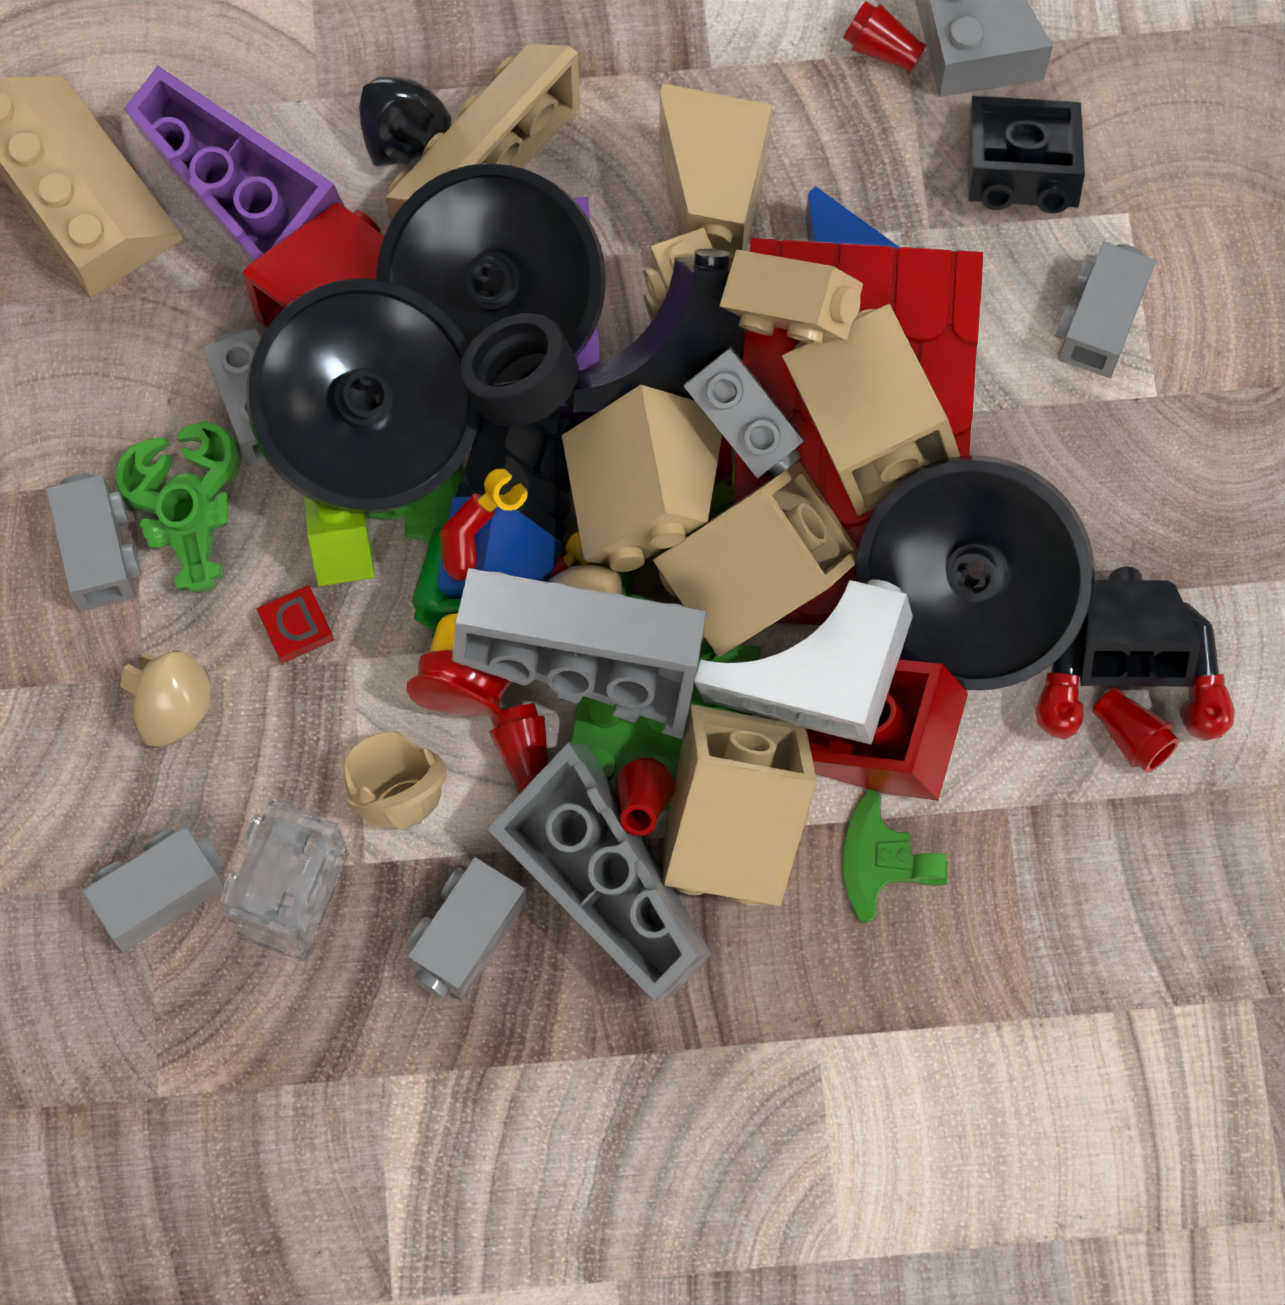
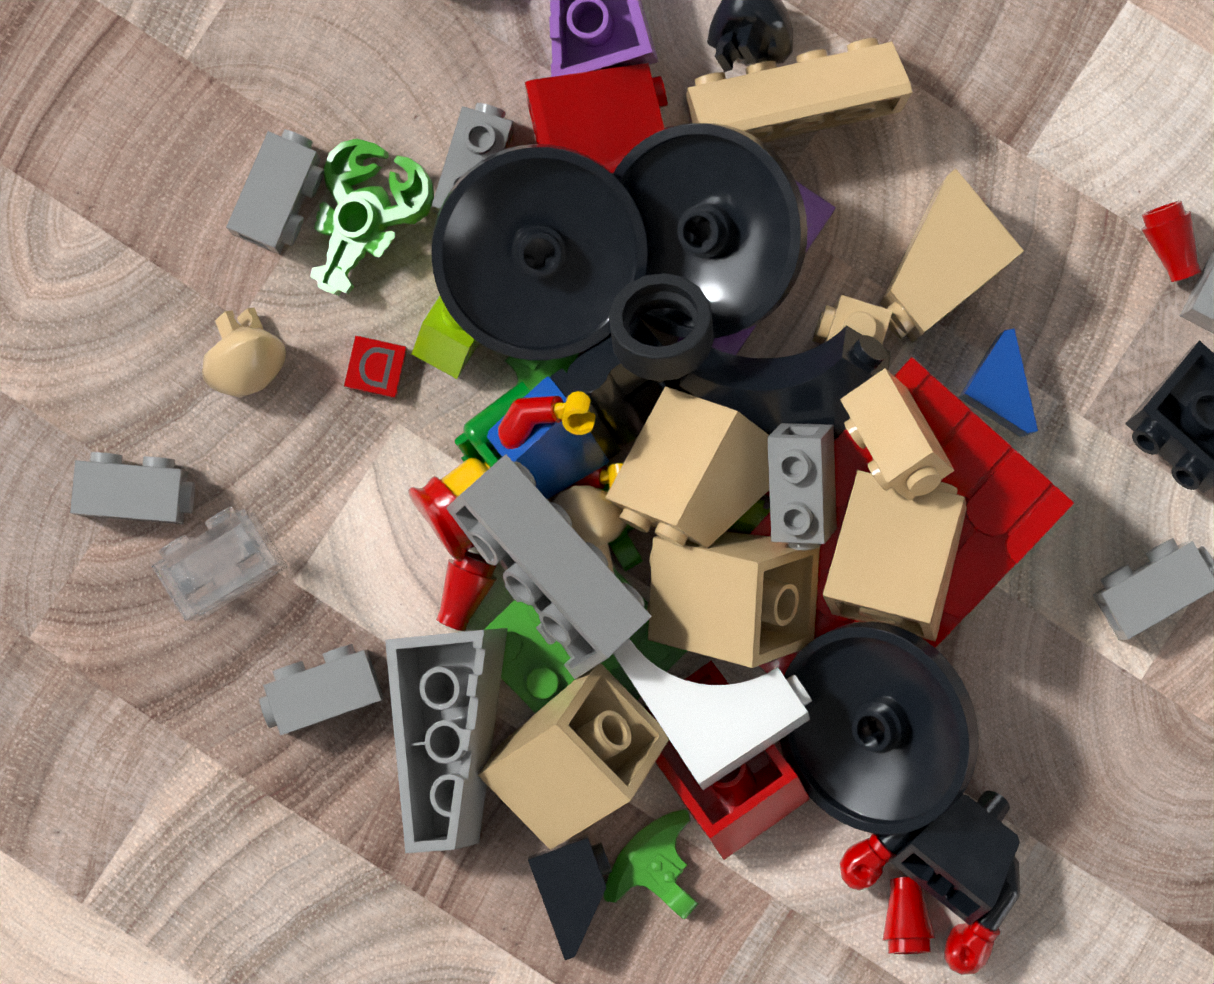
camera: 30 degrees right, 15 degrees up
(393, 780) = (352, 545): tan piece -> none
(643, 793) = (515, 698): red cone -> none
(826, 930) = (571, 888): none -> black slope

